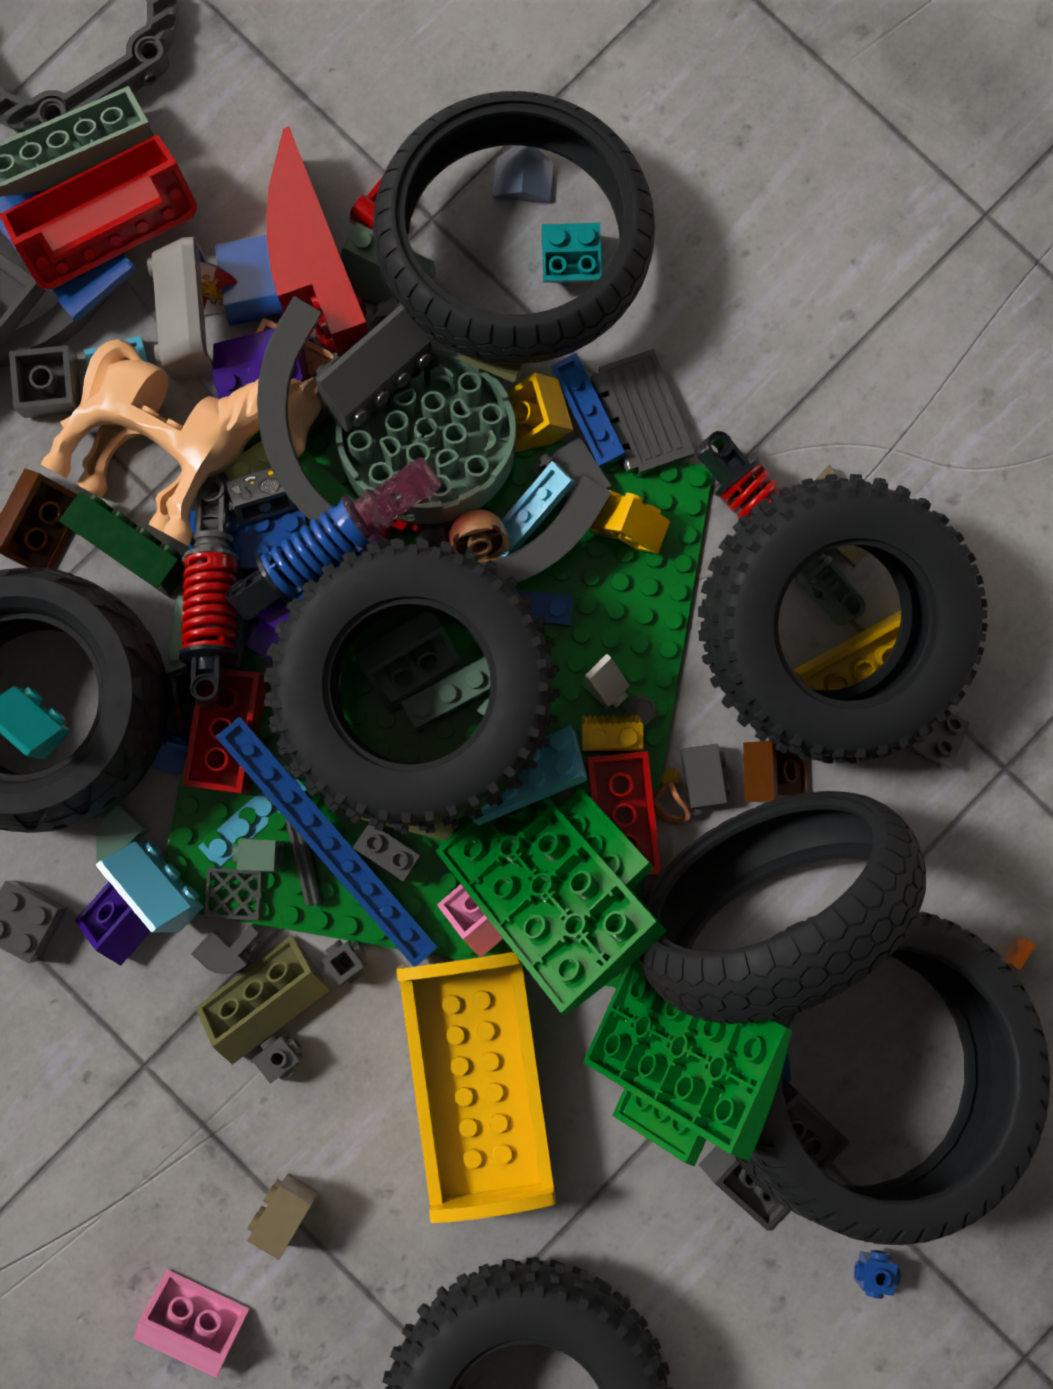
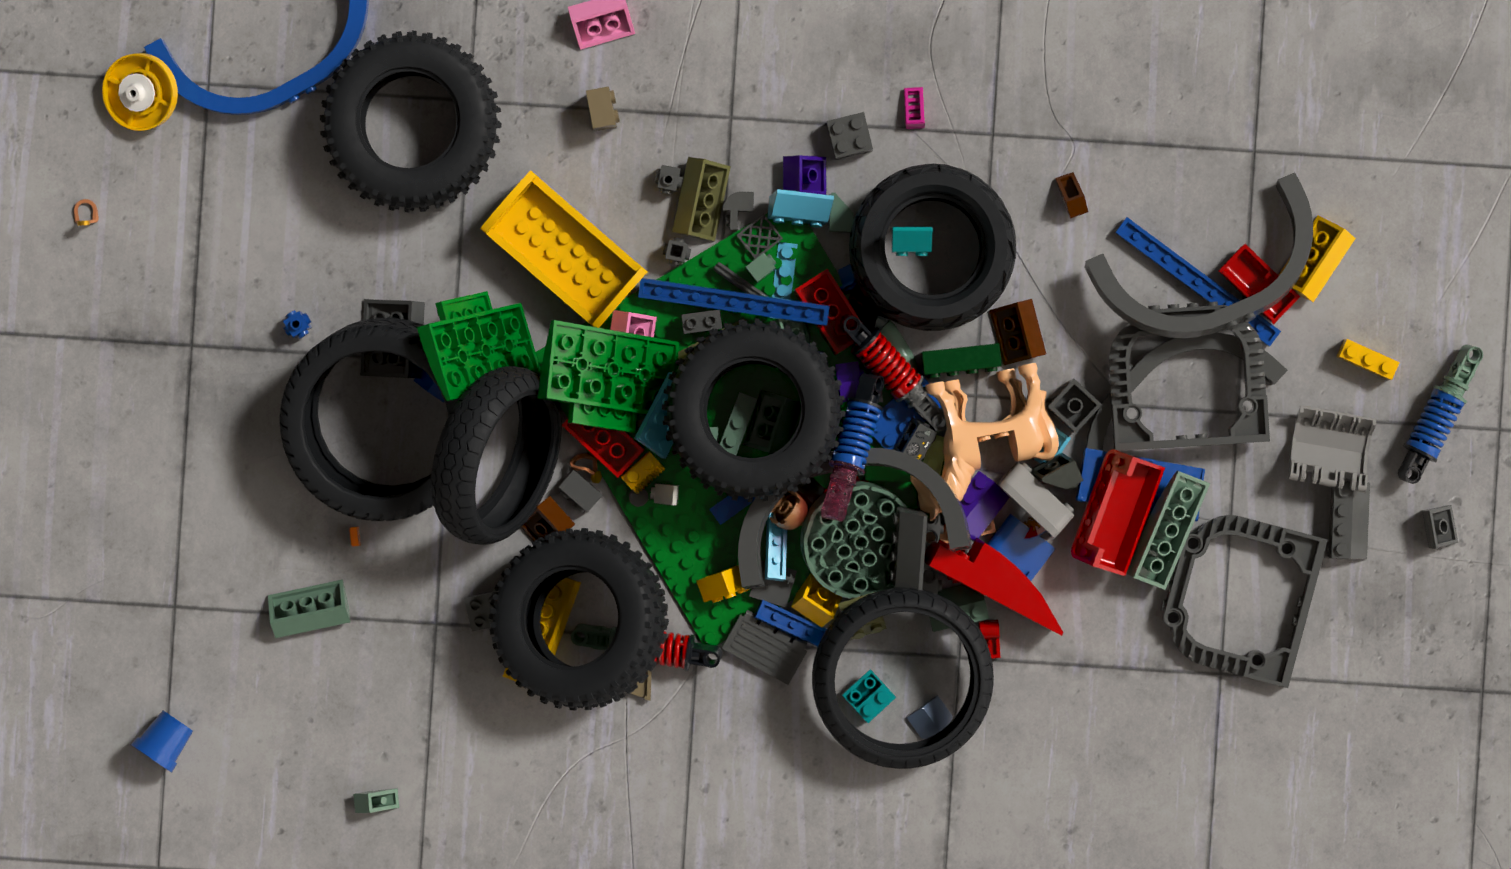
camera: 140 degrees right, 5 degrees up
(124, 315) = (1059, 471): none -> pearl dark grey slope

